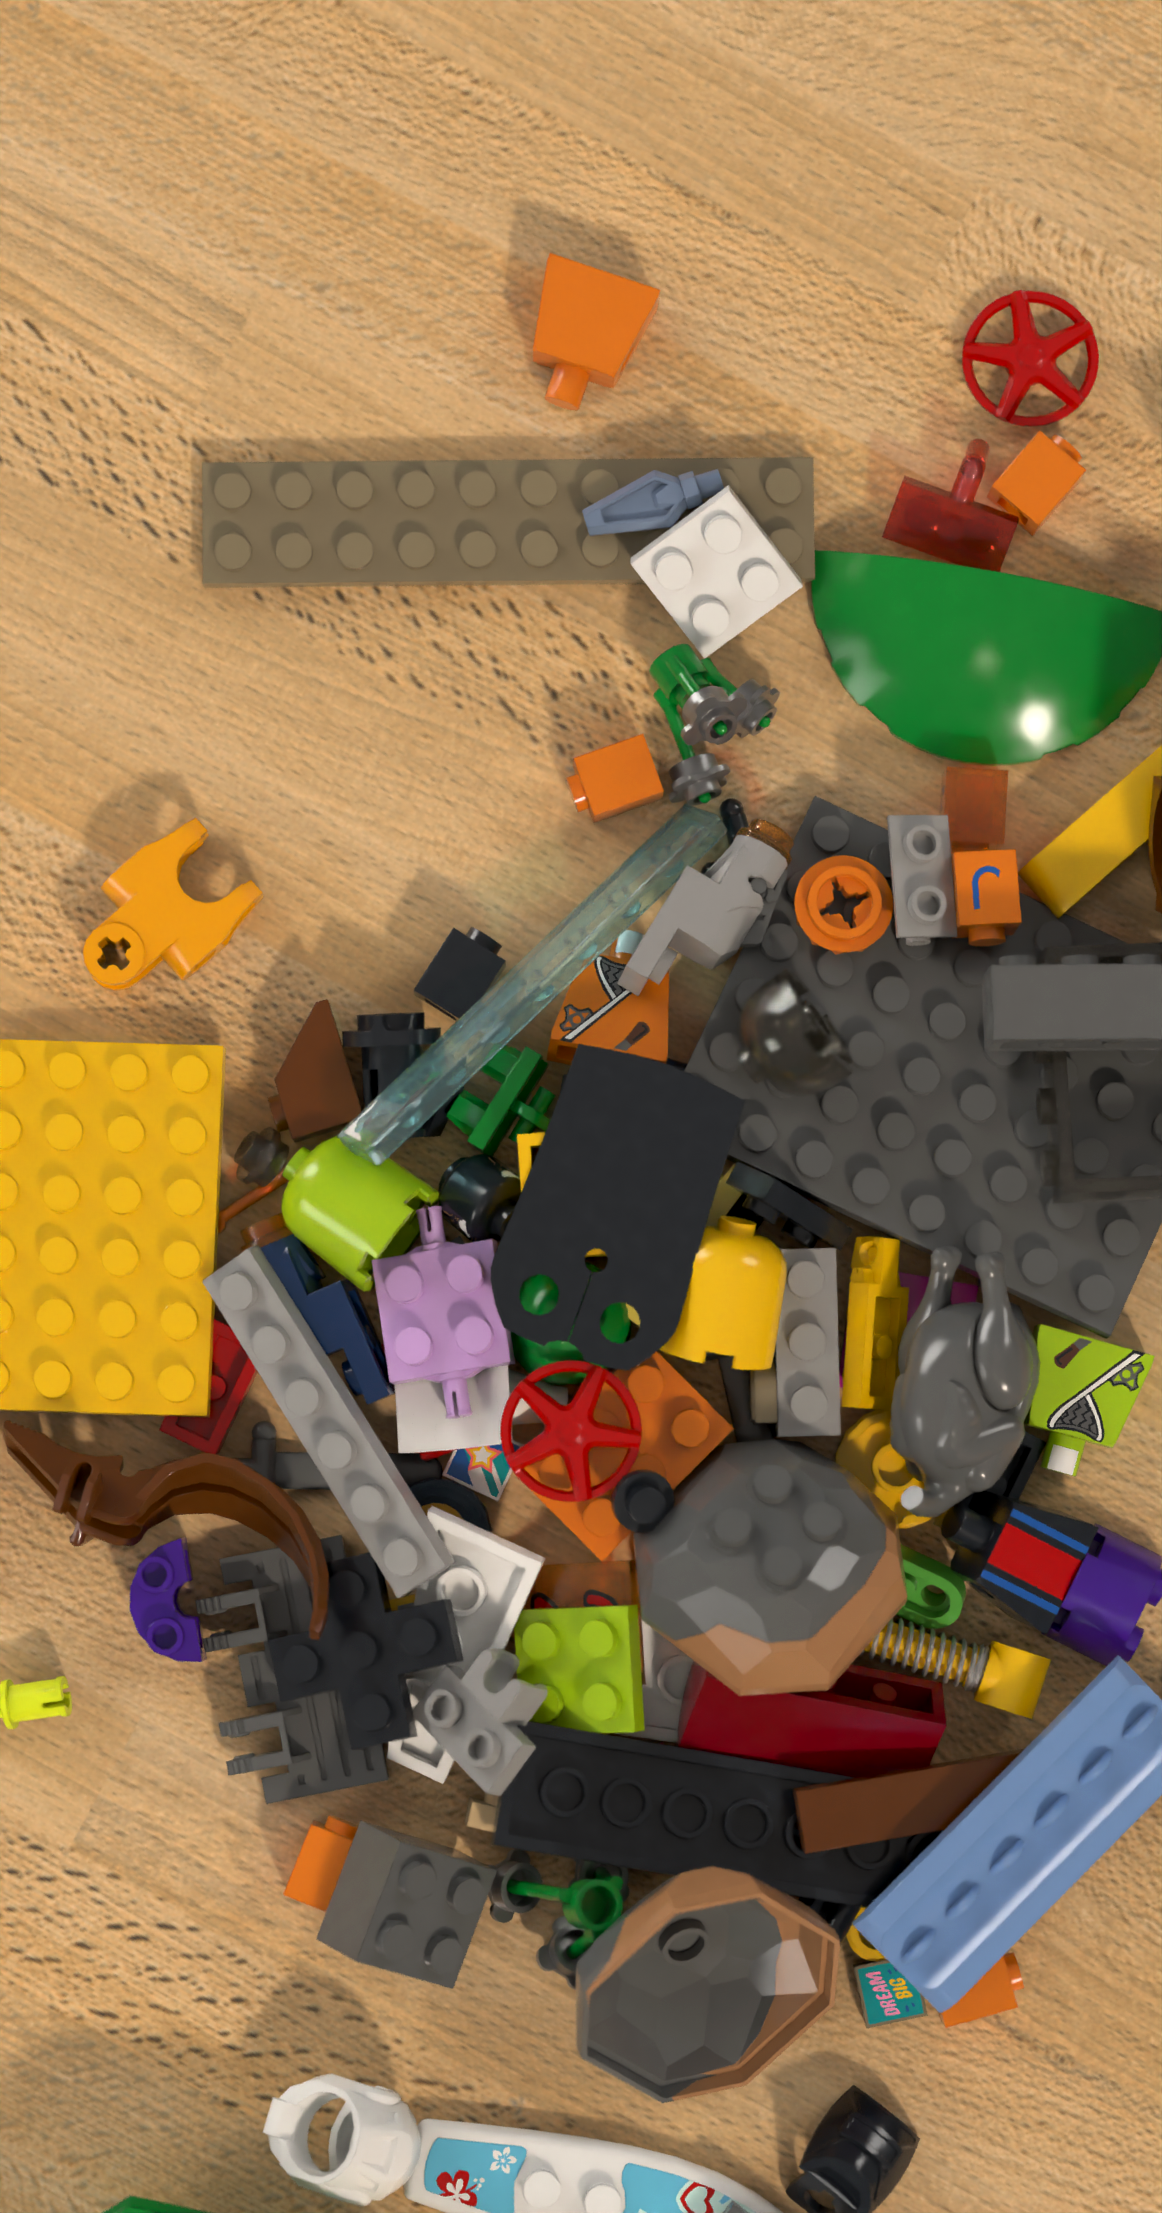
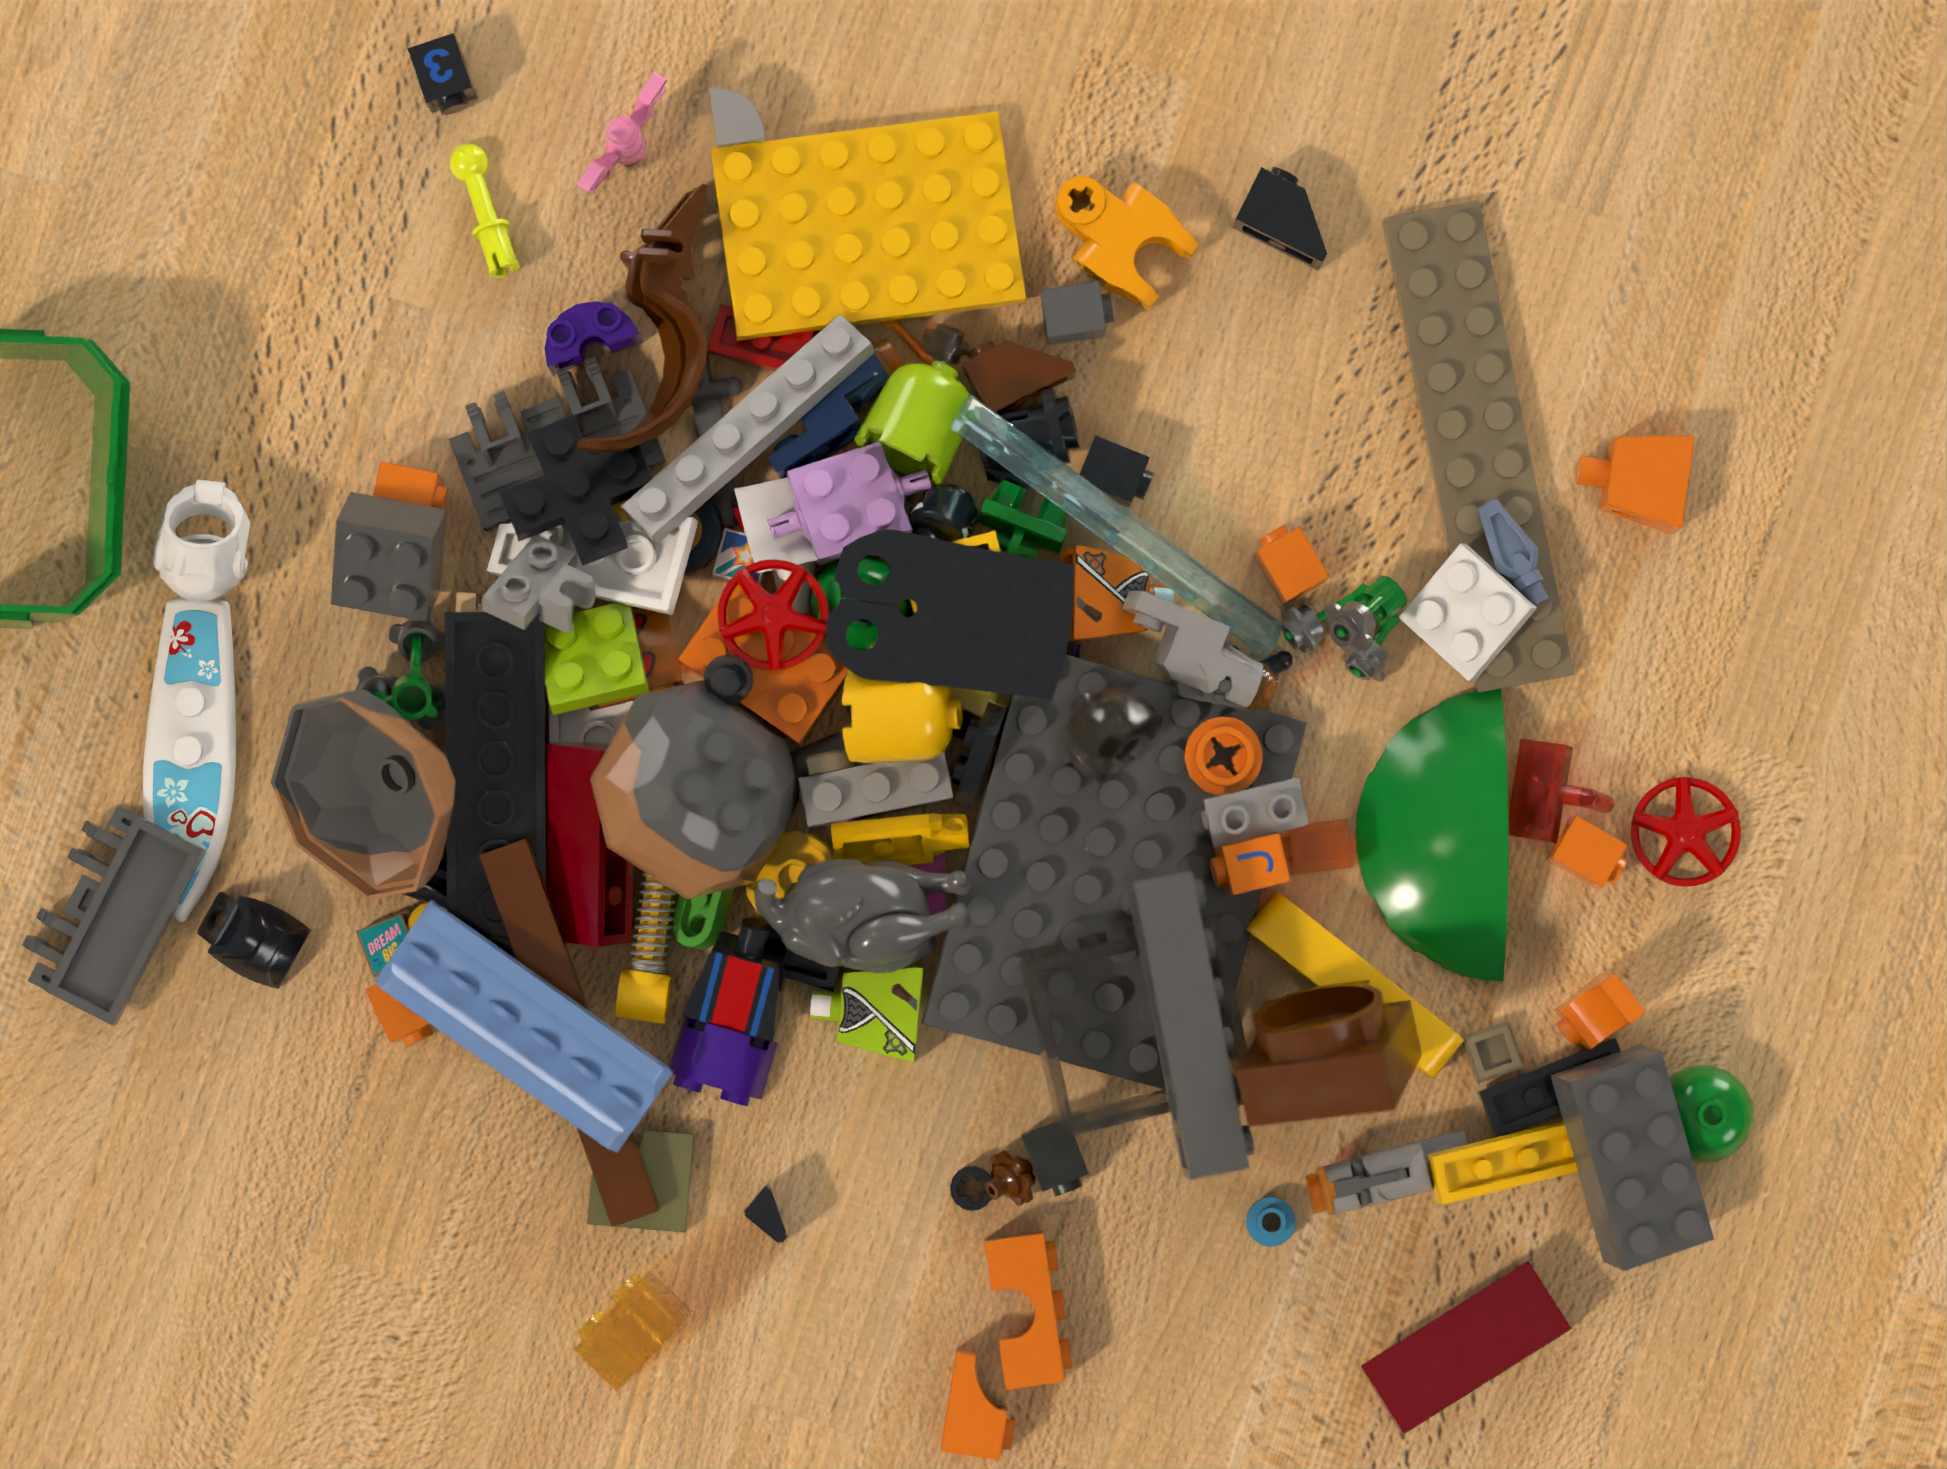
camera: 85 degrees right, 0 degrees up
(178, 709) = (1282, 217): none -> black slope
(251, 987) = (1075, 312): none -> dark grey brick

